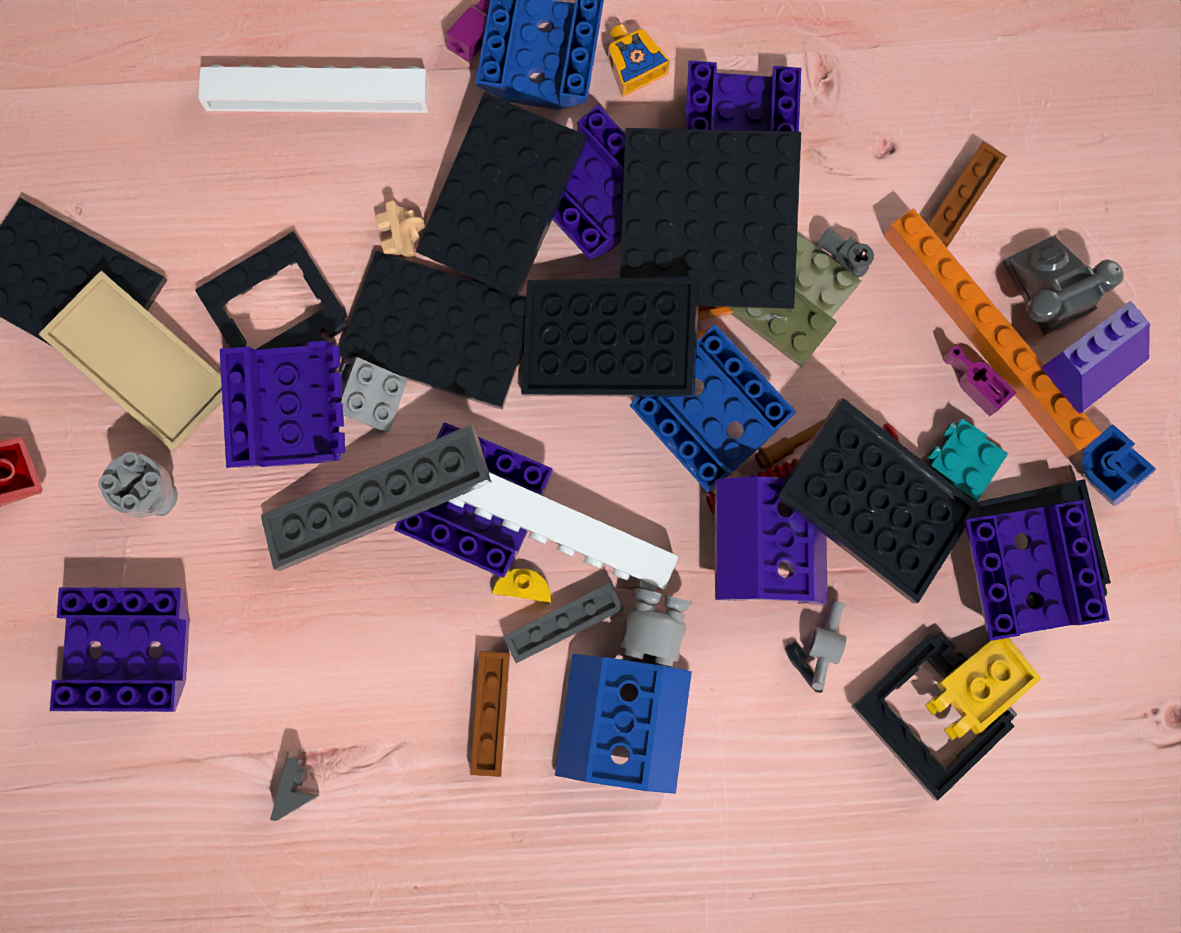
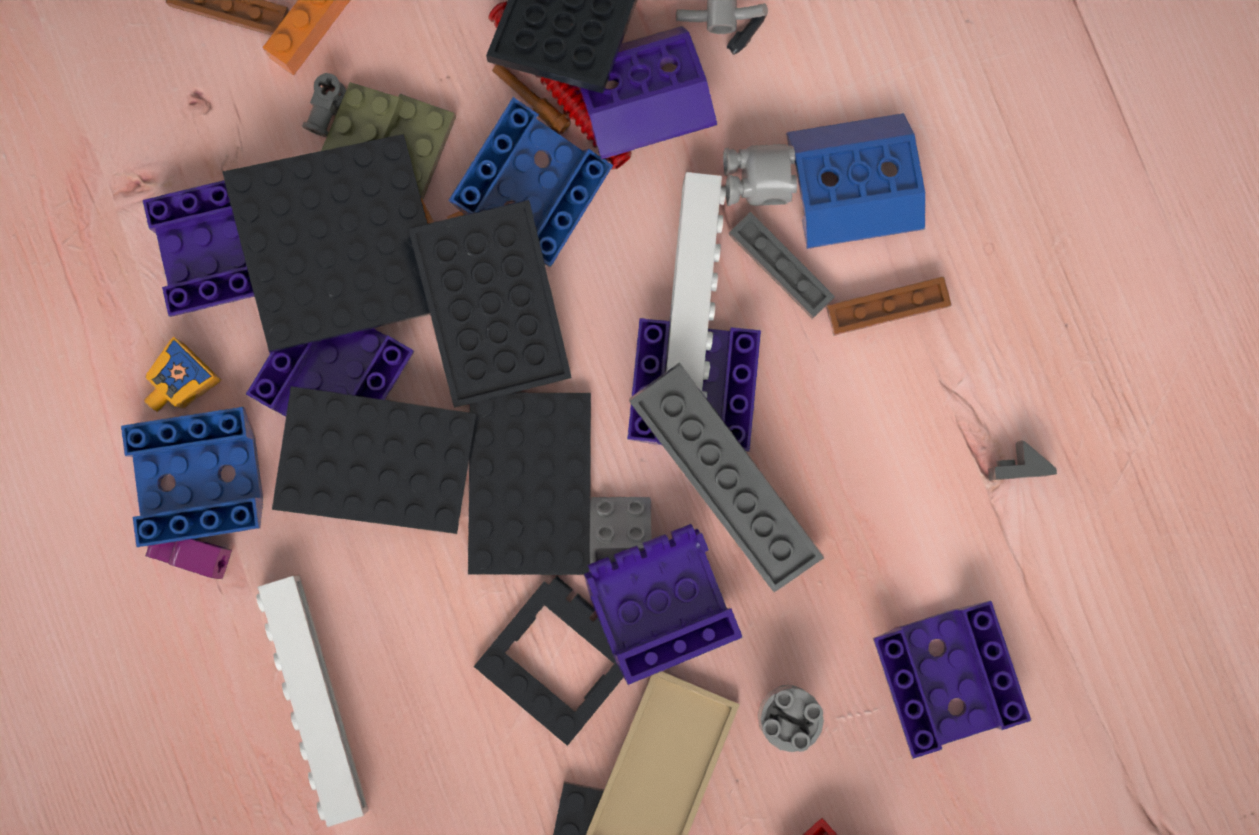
camera: 105 degrees left, 5 degrees up
(403, 228) = (436, 554): light nougat hips -> none
(523, 585) = (757, 314): yellow plate -> none

